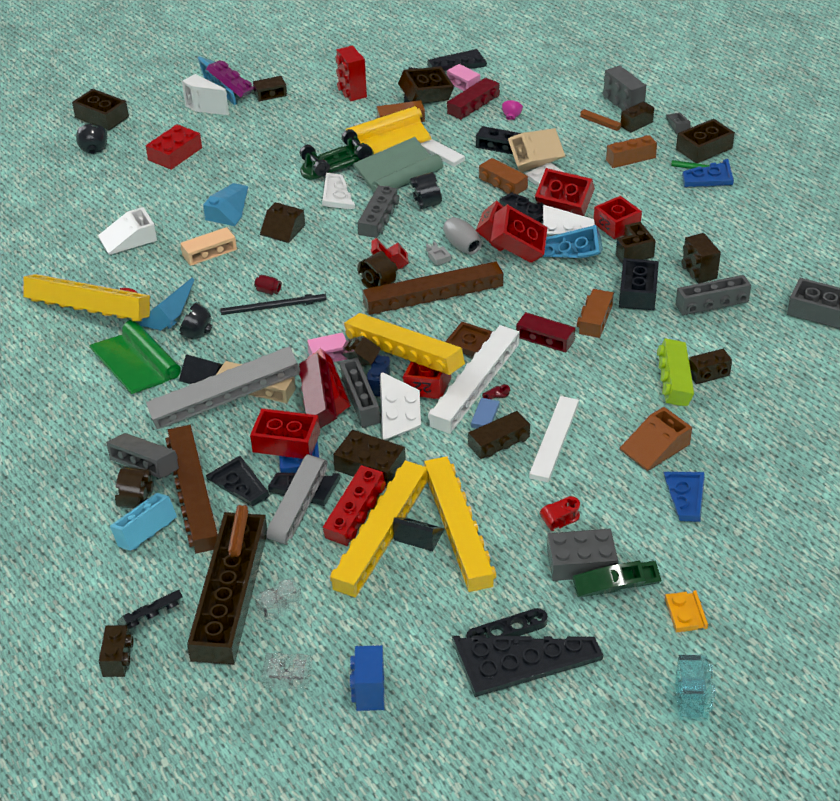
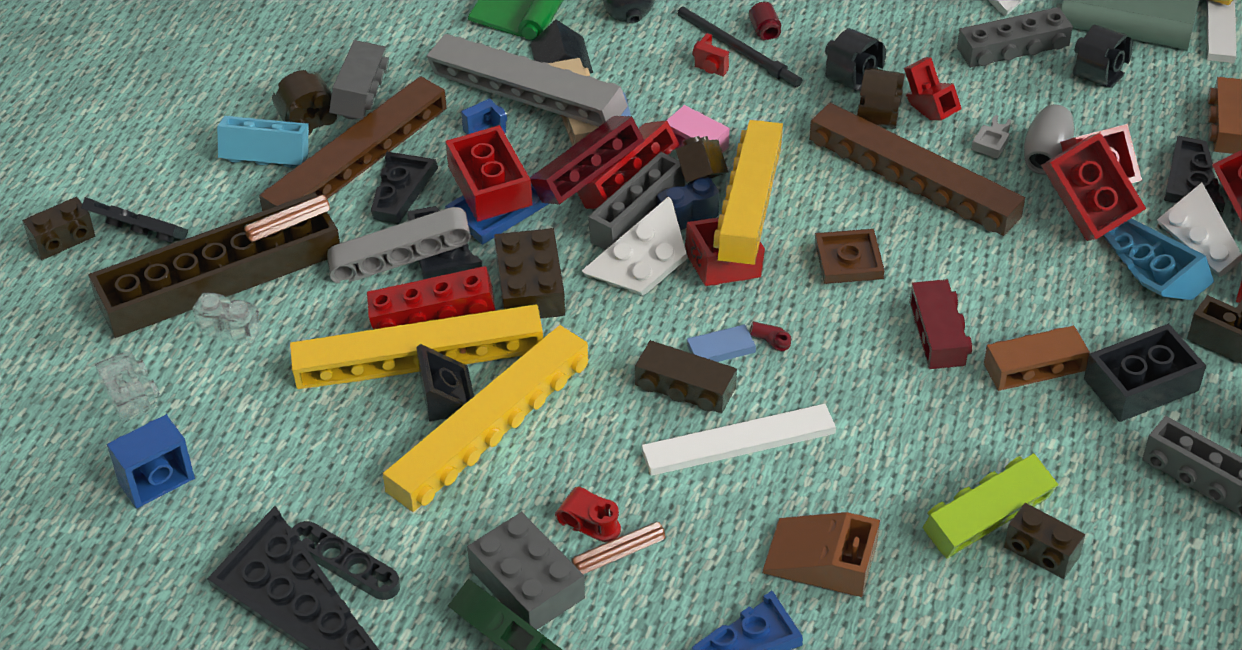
camera: 55 degrees right, 5 degrees up
(225, 418) = (483, 116): none -> blue bracket
(274, 316) = (710, 57): none -> red bracket
(338, 267) = (850, 57): none -> black brick
(473, 379) = (775, 298): white brick -> none
(589, 510) = (619, 547): none -> axle

